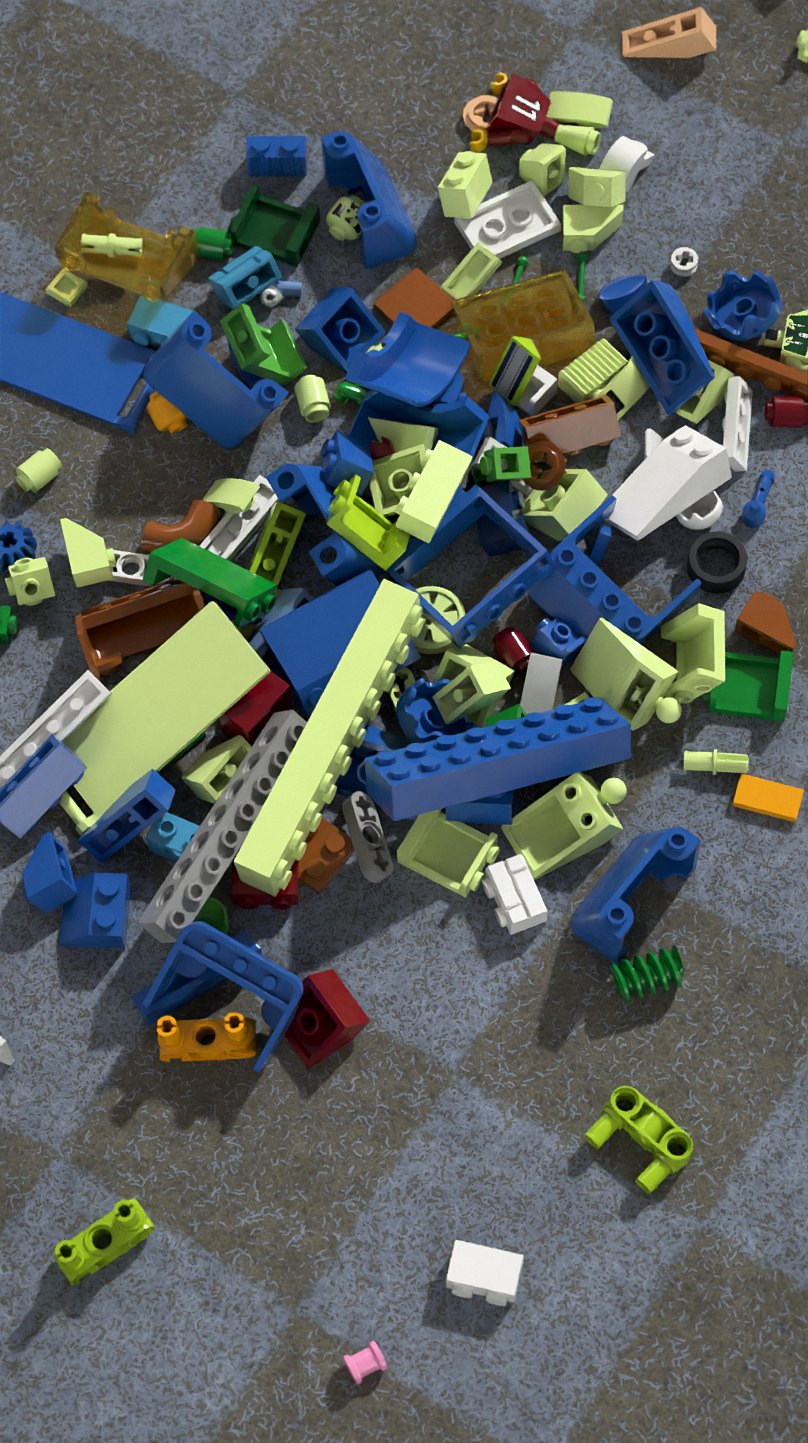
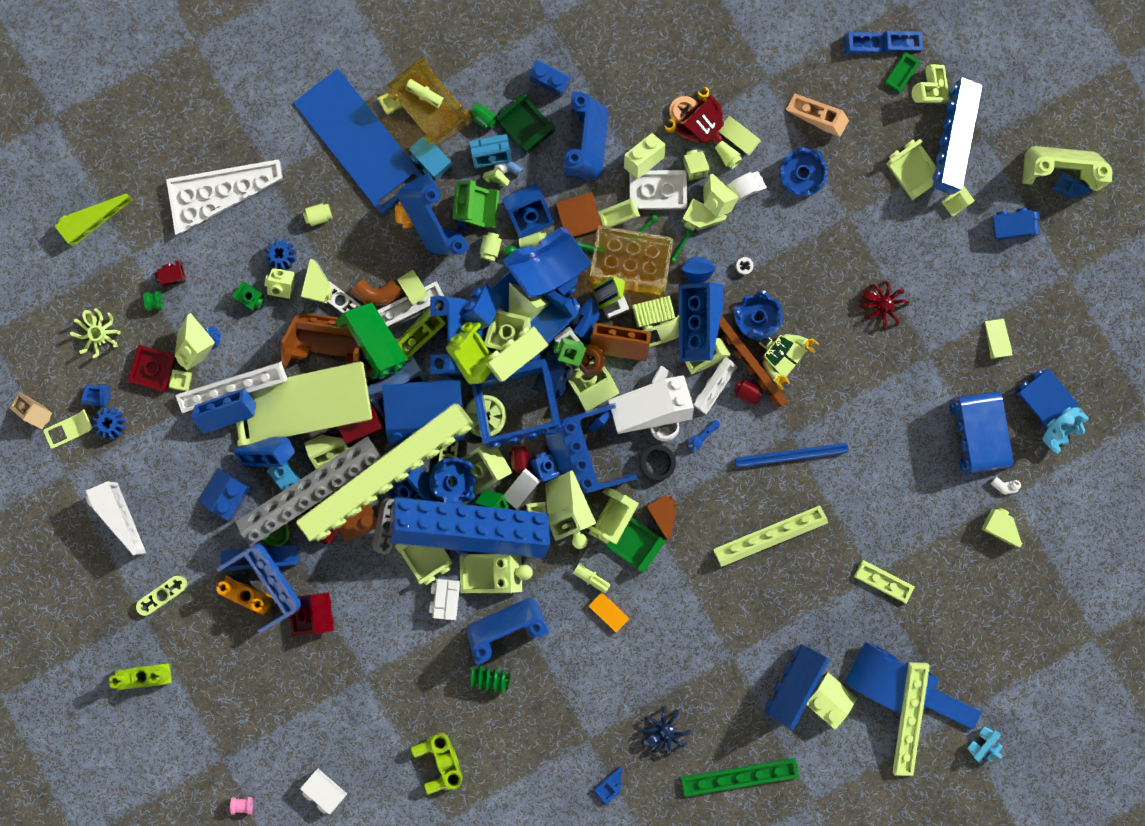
camera: 25 degrees right, 20 degrees up
(48, 875) = (209, 462): blue slope -> none
(91, 1090) = (152, 608): none -> yellowish green beam
(271, 309) = (496, 176): none -> yellowish green tile
(343, 218) = (568, 140): yellowish green head -> none
(382, 449) = (506, 307): dark red hinge -> none
(471, 691) = (477, 480): yellowish green slope -> none
(698, 96) = (811, 161): none -> blue plate

